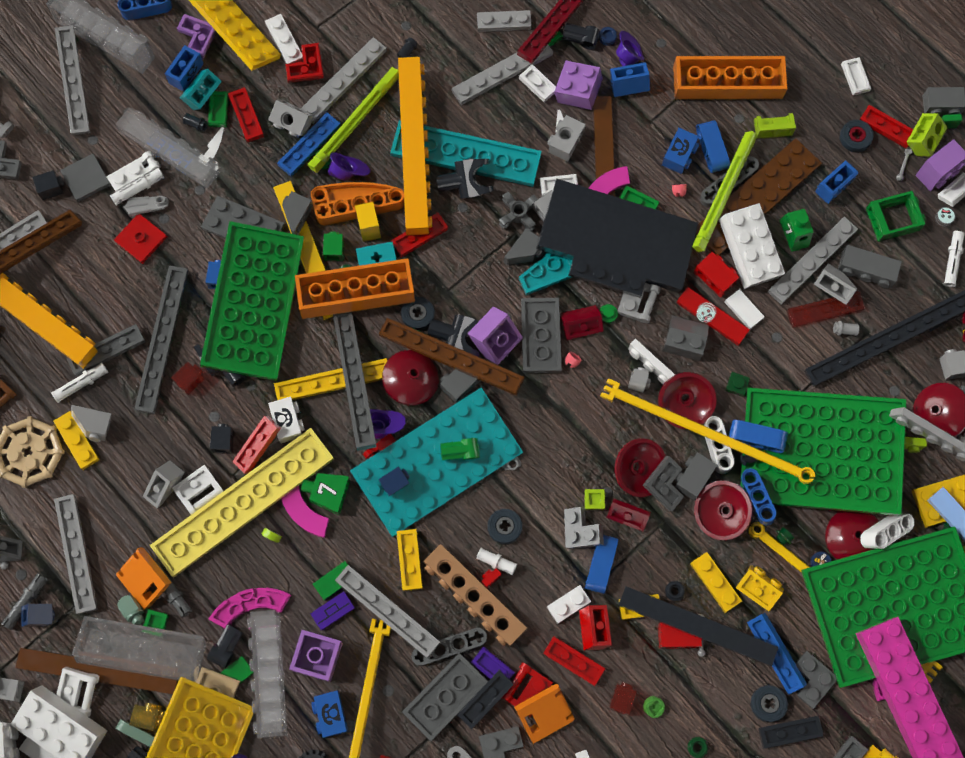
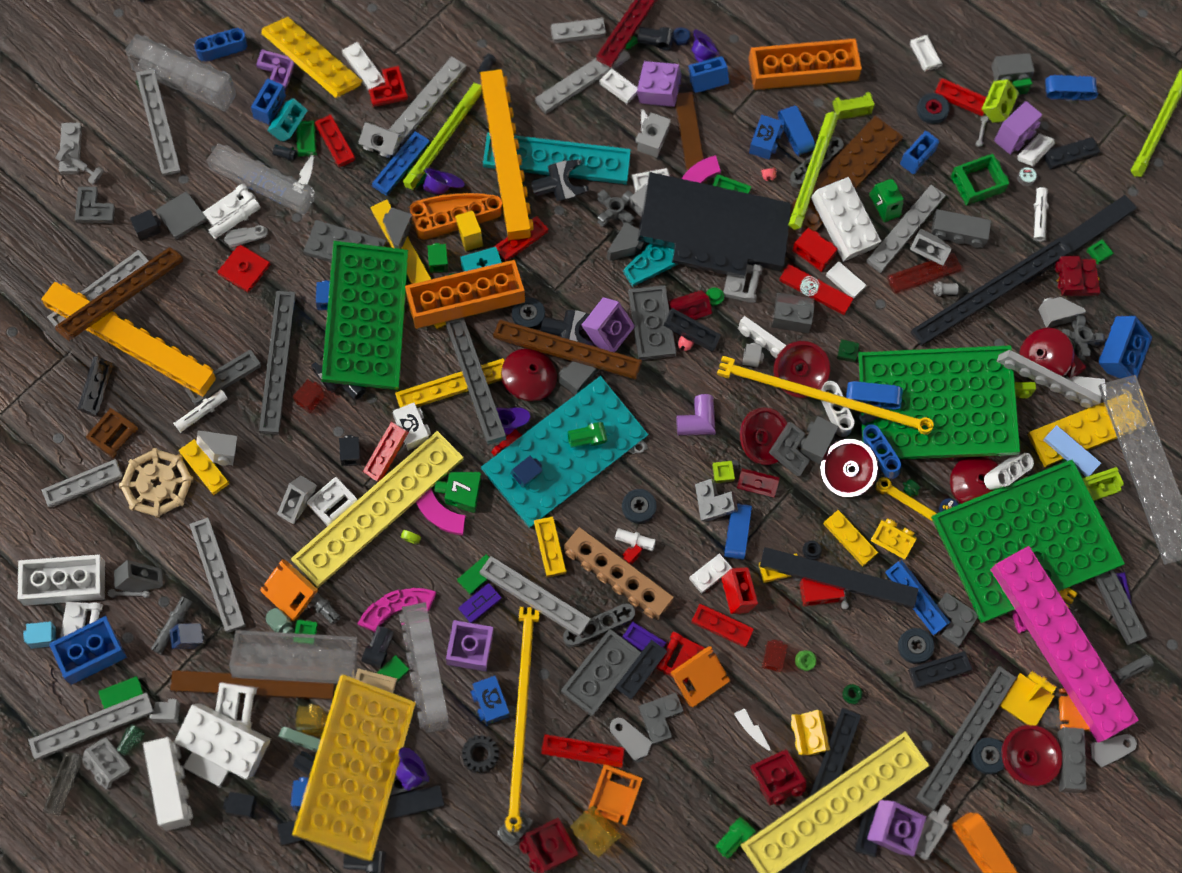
camera: 10 degrees left, 5 degrees down
(580, 347) = (692, 330): none -> black plate
(580, 444) = (702, 422): none -> medium lavender brick

